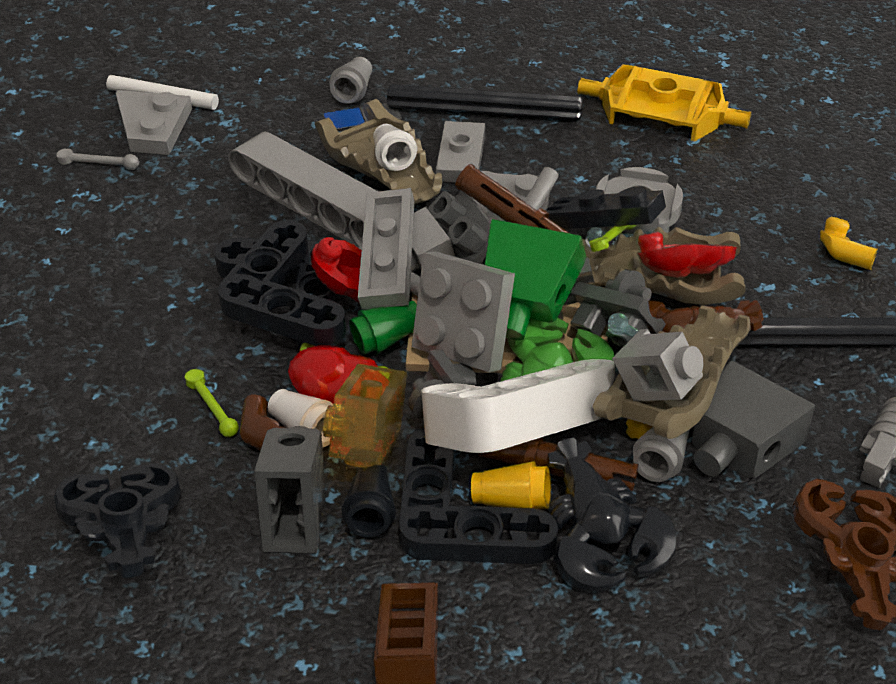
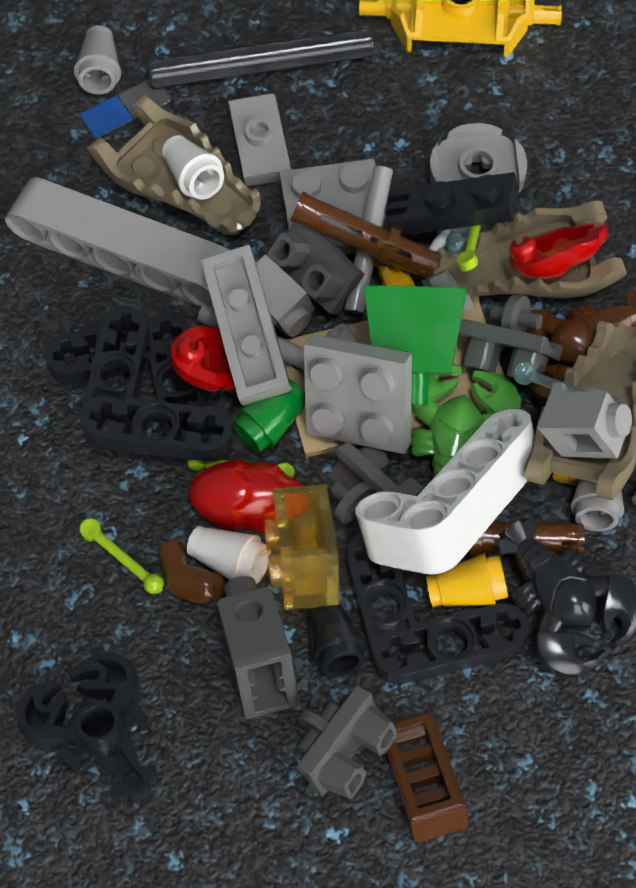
camera: 15 degrees left, 20 degrees up
(336, 579) = (336, 738): none -> dark grey hips

